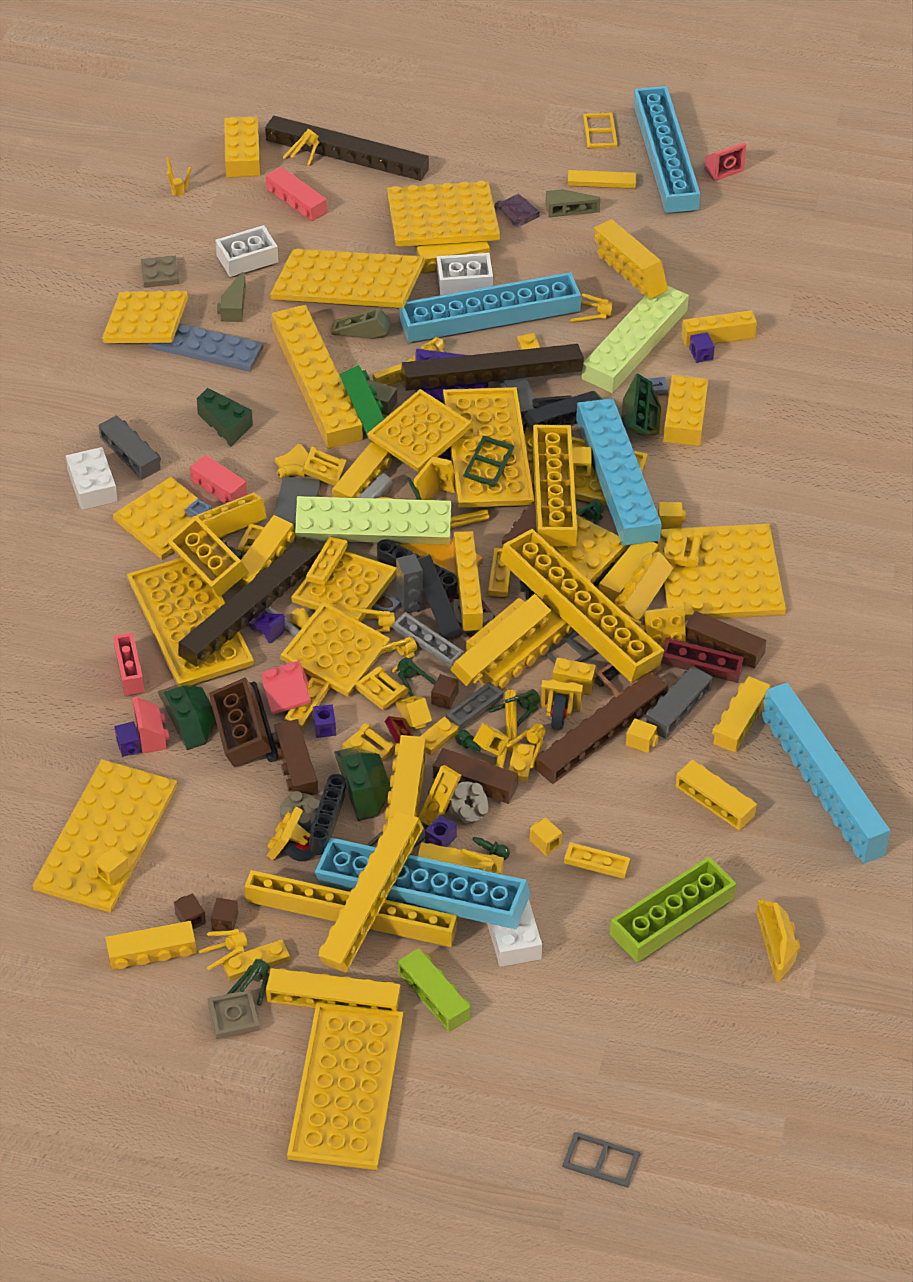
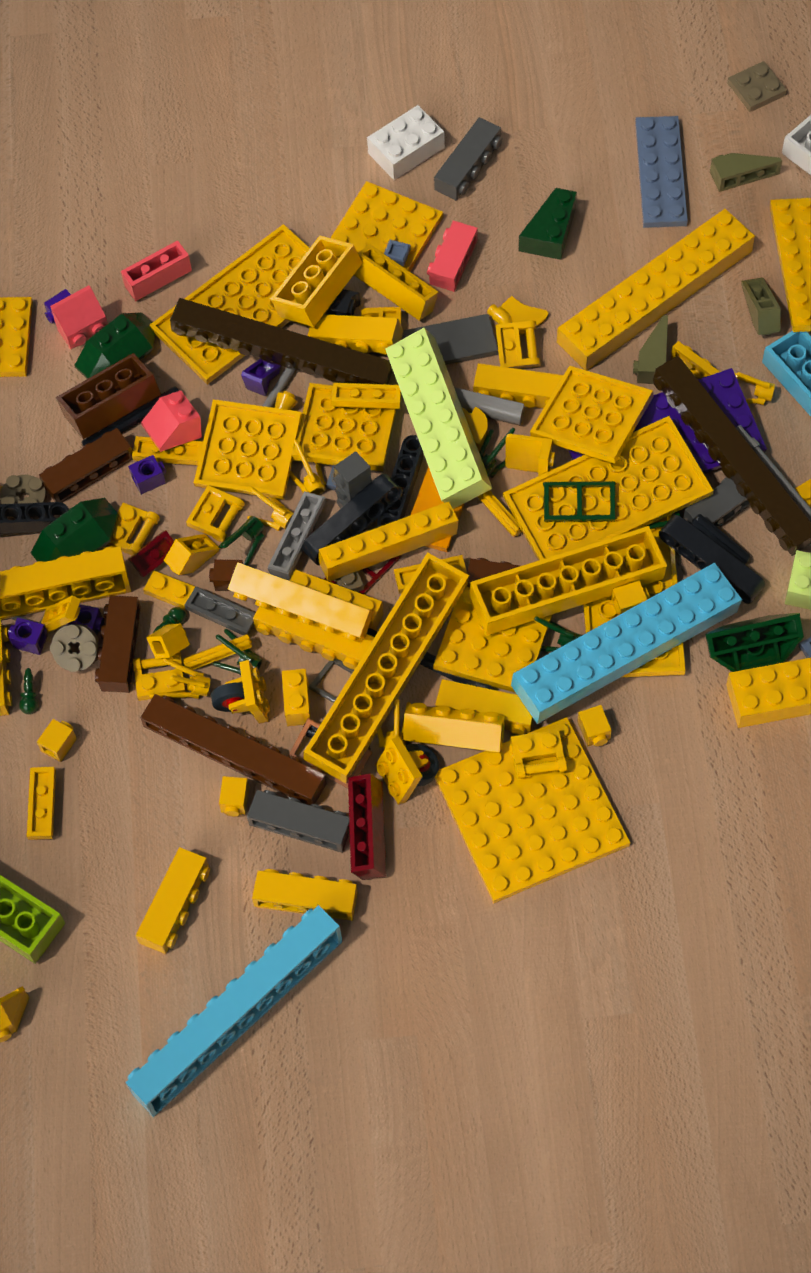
camera: 75 degrees right, 15 degrees up
(145, 317) = (670, 98): yellow plate -> none
(363, 397) = (625, 343): green brick -> none
(726, 638) = (415, 844): reddish brown brick -> none

